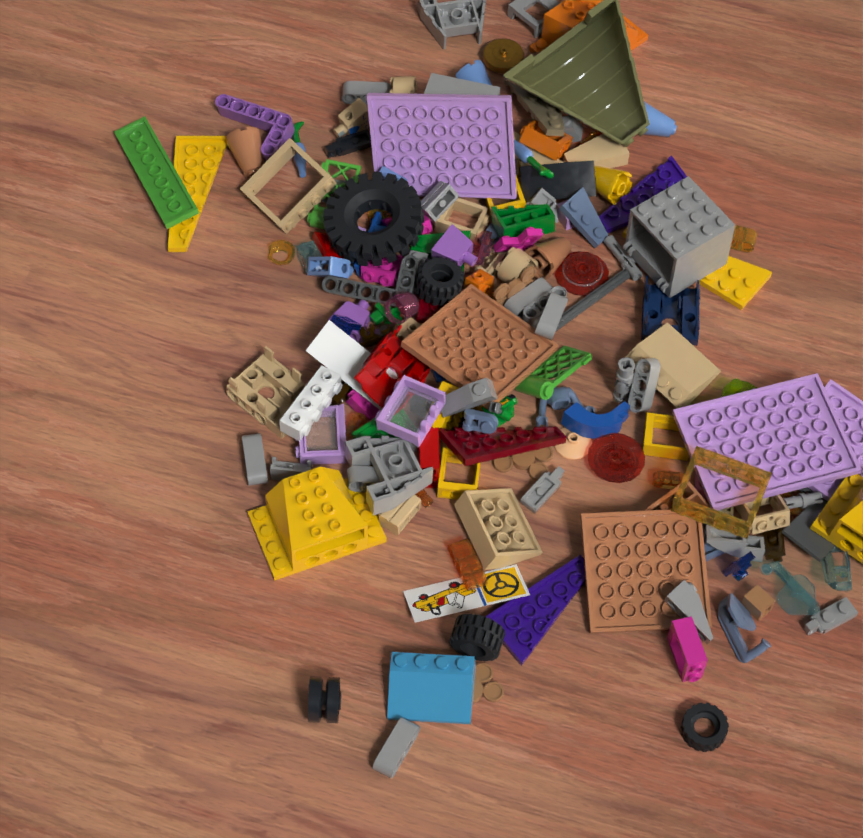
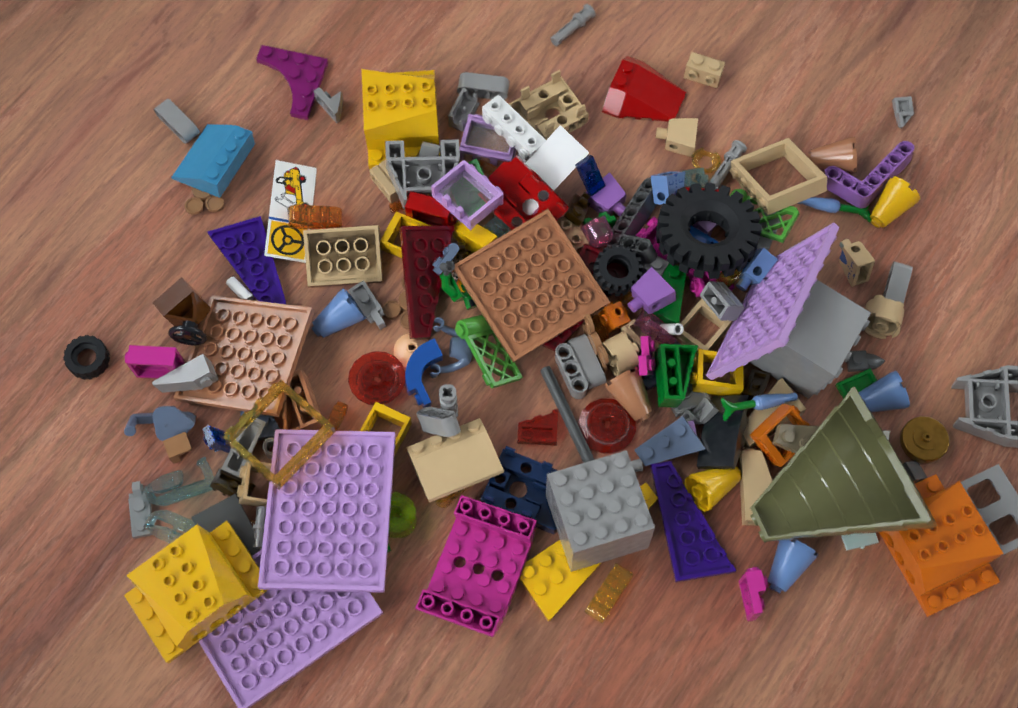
camera: 110 degrees right, 10 degrees up
(144, 392) = (578, 20): none -> light grey pin
(156, 172) = (827, 75): bright green plate -> none
(173, 115) = (903, 110): none -> light grey slope
(177, 271) = (704, 70): none -> tan brick
(196, 164) = (822, 110): yellow wing -> none
(216, 317) = (642, 93): none -> red wedge
(260, 276) = (680, 135): none -> tan torso
(273, 233) = (735, 152): none -> light grey pin
(284, 101) = (893, 202): none -> yellow cone
(290, 642) = (300, 71): none -> magenta plate
(324, 595) = (331, 105): none -> light grey slope
(324, 699) = (232, 74): black wheel -> none
(349, 144) = (832, 263): black hinge -> none
(469, 397) = (463, 248): light grey slope -> none
(477, 637) = (236, 196): black tyre -> none
(478, 234) = (673, 328): none -> white hinge
(551, 316) = (546, 361): light grey beam -> none
(565, 505) = (337, 315): none -> medium blue cone
(572, 611) = (239, 289): none -> white hinge
(609, 318) = (539, 430): none -> clear red wing
(624, 636) = (185, 311): none -> reddish brown piece
(688, 138) = (752, 587): none -> dark pink plate
(782, 324) = (485, 538): none -> dark pink slope

